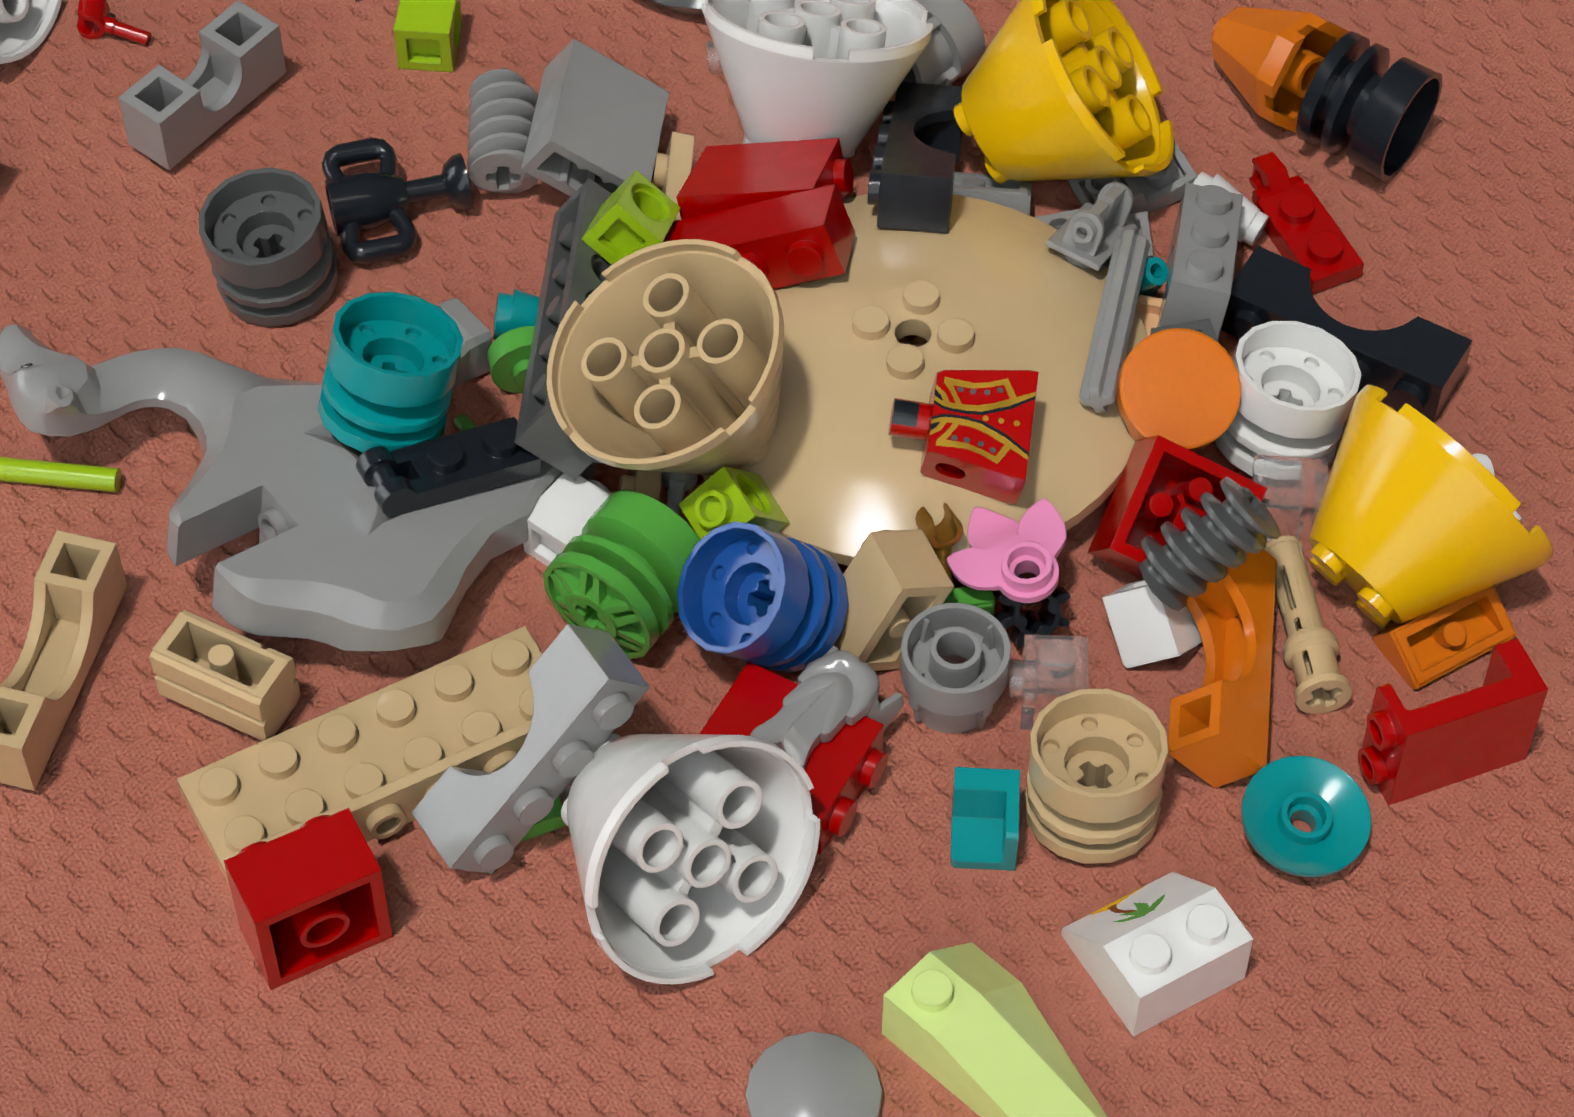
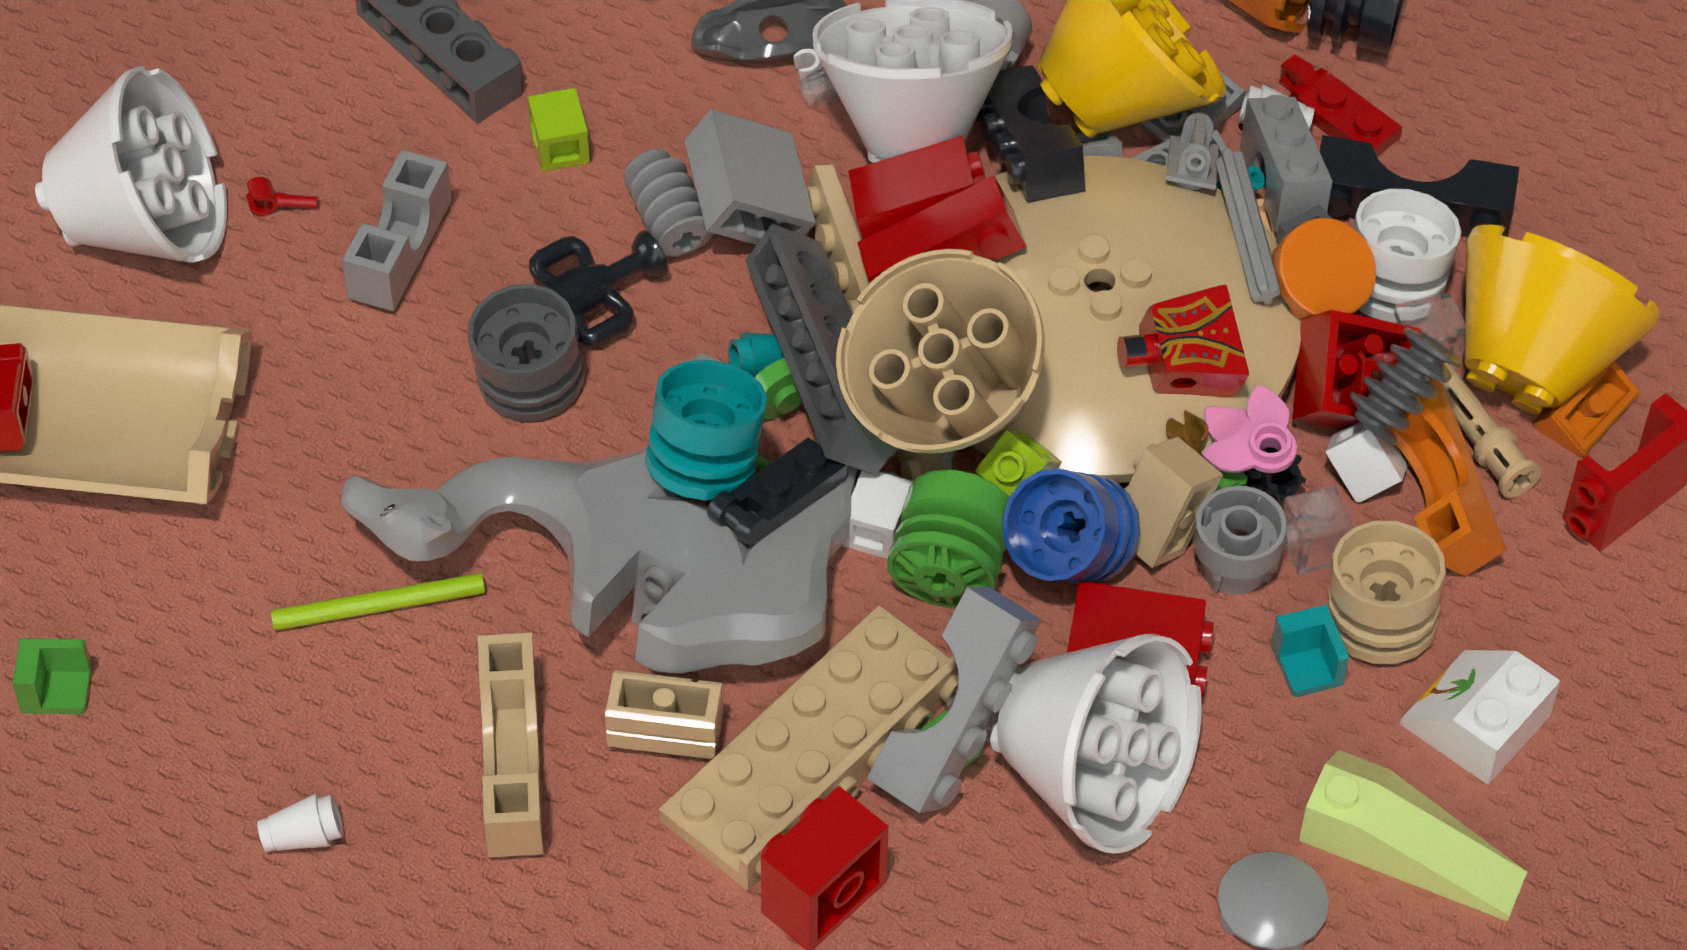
camera: 20 degrees left, 0 degrees up
(631, 219) = (829, 252): lime brick -> none
(828, 695) = (1157, 589): light grey hair -> none
(1310, 792) = (1561, 564): teal dish -> none

